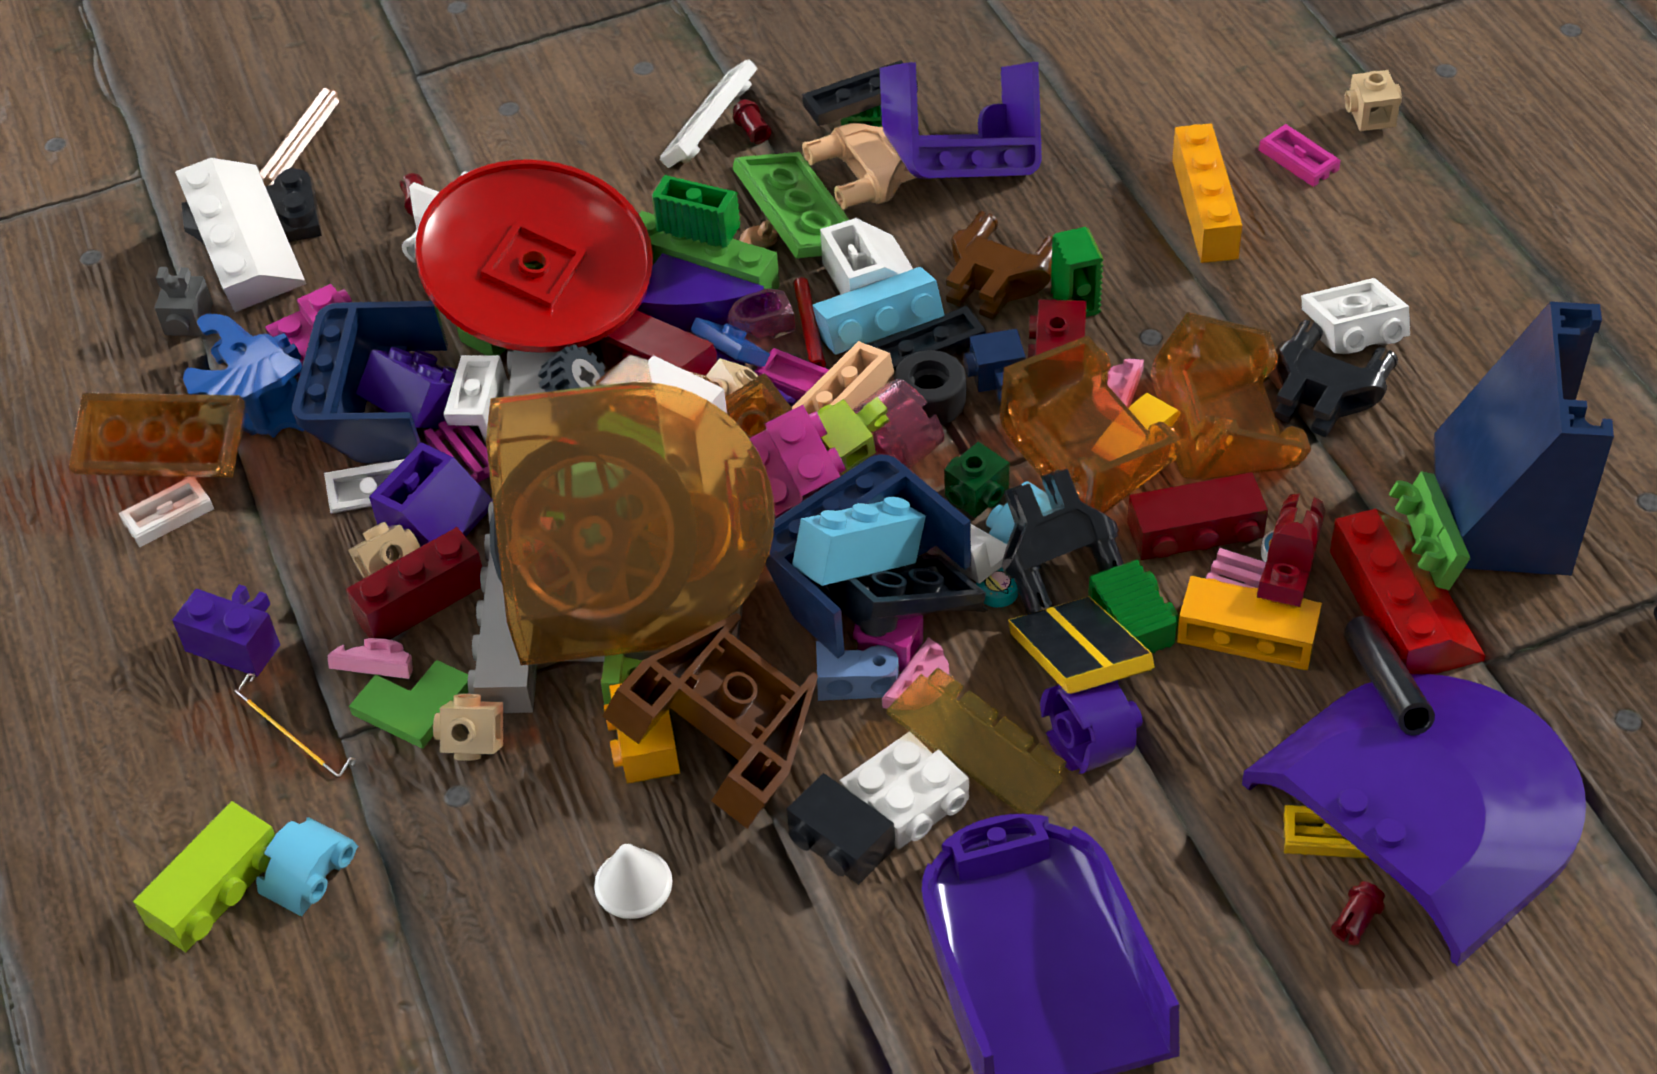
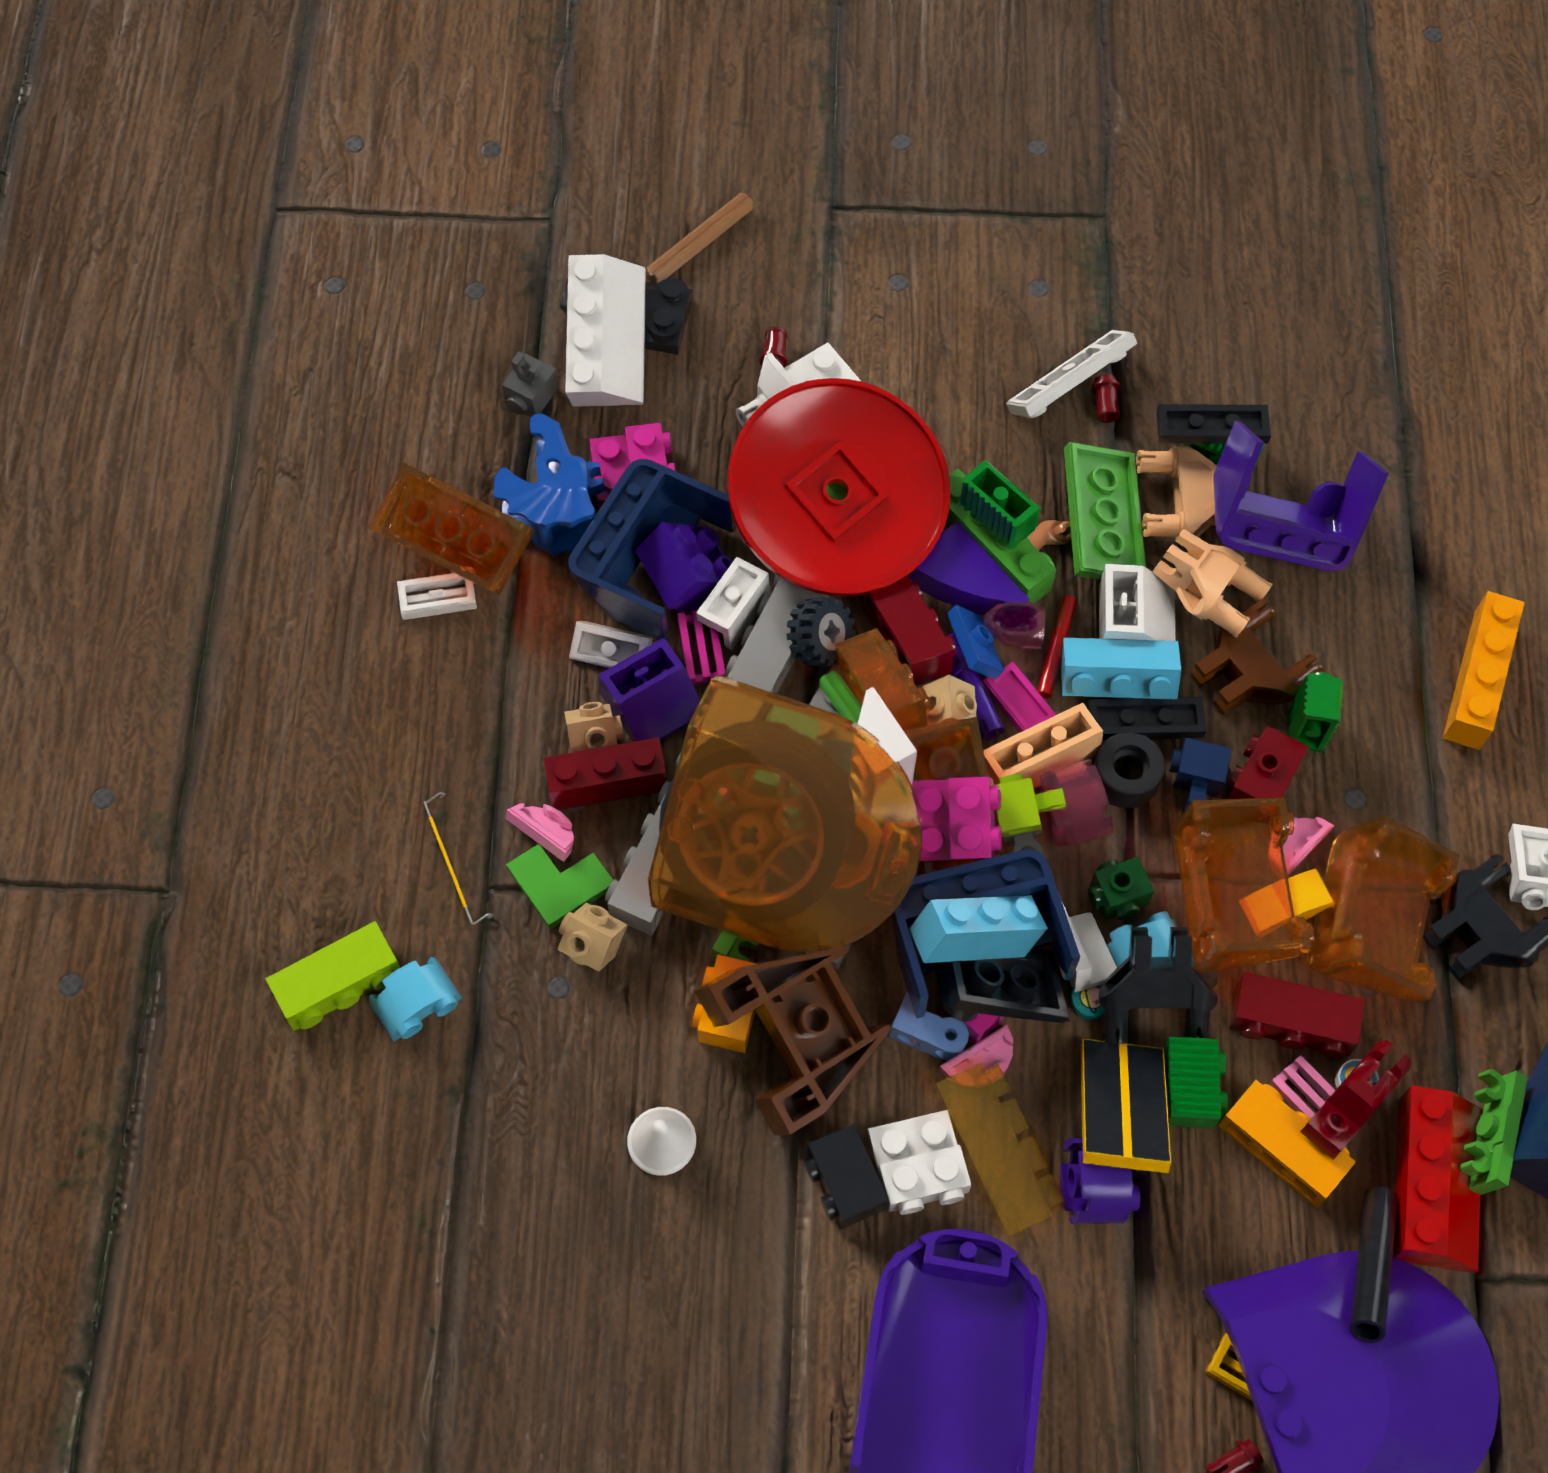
camera: 20 degrees right, 15 degrees up
(228, 629) = (439, 745): dark purple brick -> none
(923, 211) = (1203, 576): none -> light nougat connector

